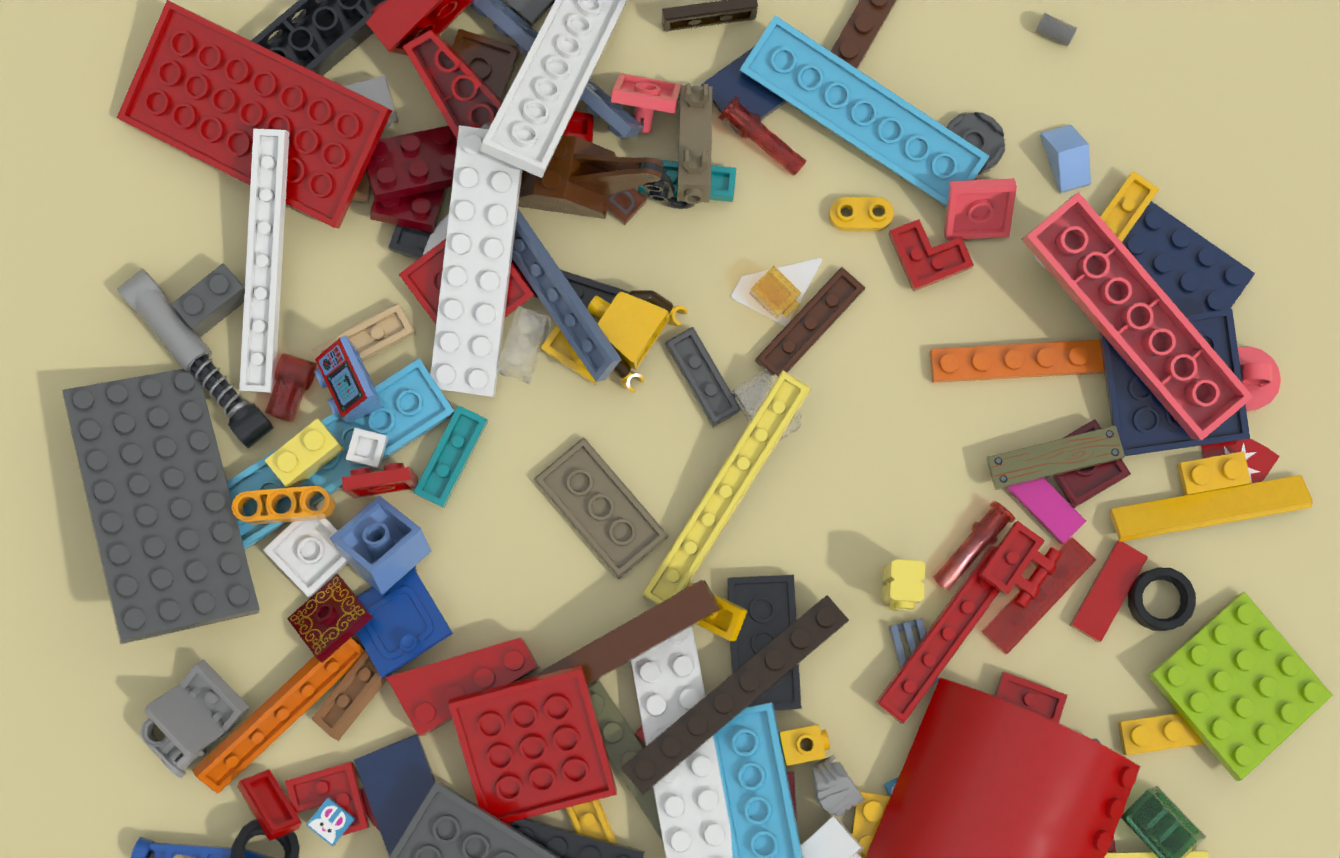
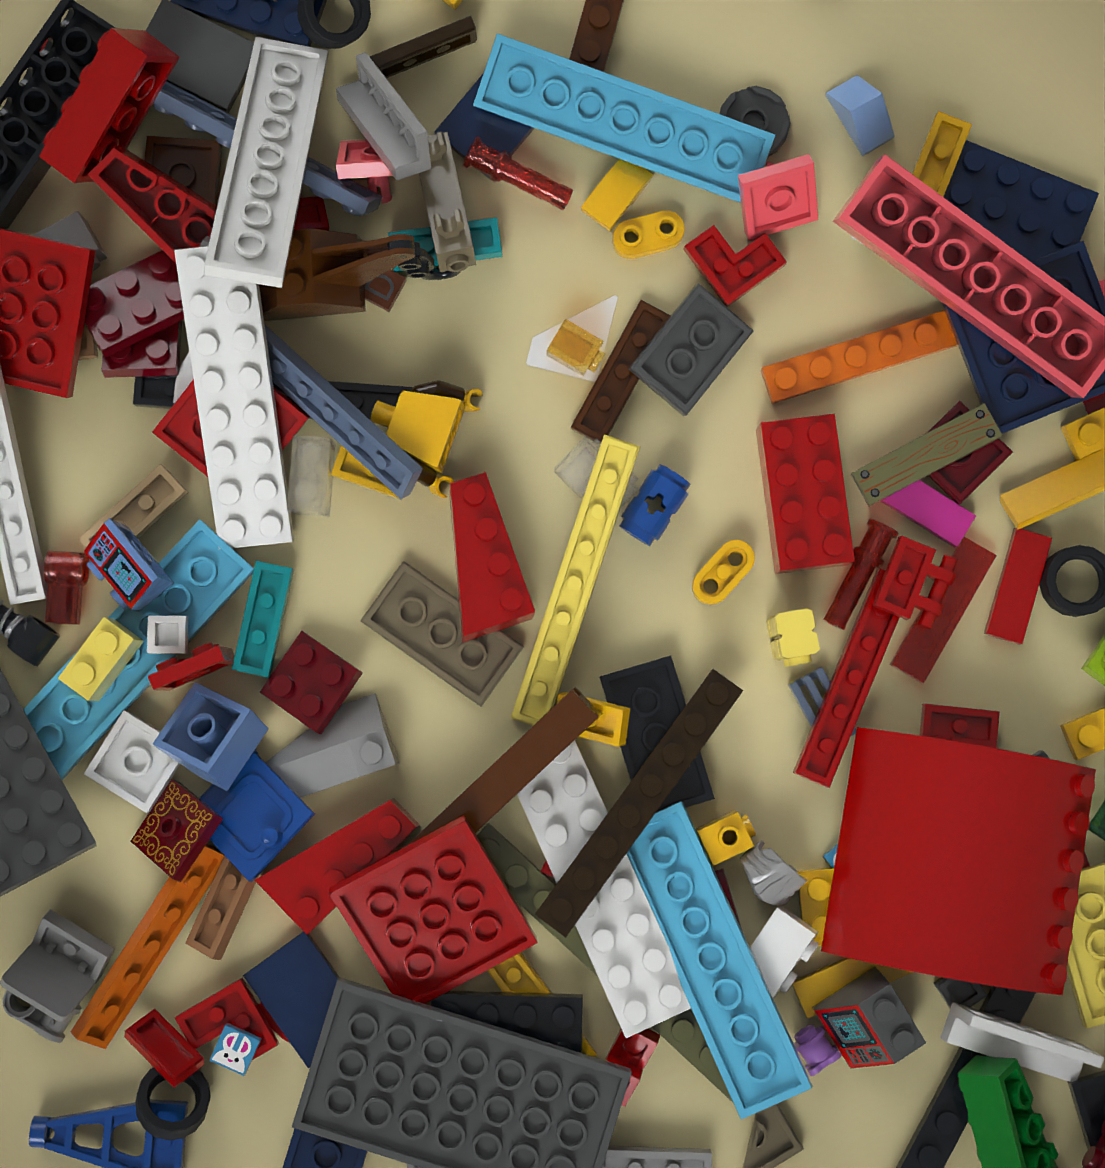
camera: 10 degrees left, 5 degrees up
(268, 500) = (75, 725): light orange beam -> none
(478, 520) = (311, 682): none -> dark red plate
(486, 584) = (347, 749): none -> light grey wedge
(654, 460) = (487, 571): none -> red wedge
(663, 64) = (385, 120): none -> light grey fence
(703, 376) = (517, 460): dark grey tile -> none
(819, 425) = (662, 484): none -> blue piece
(842, 172) = (616, 193): none -> yellow slope
(855, 515) = (722, 572): none -> yellow plate
(874, 319) = (691, 349): none -> dark grey tile
(942, 465) = (804, 493): none -> red brick

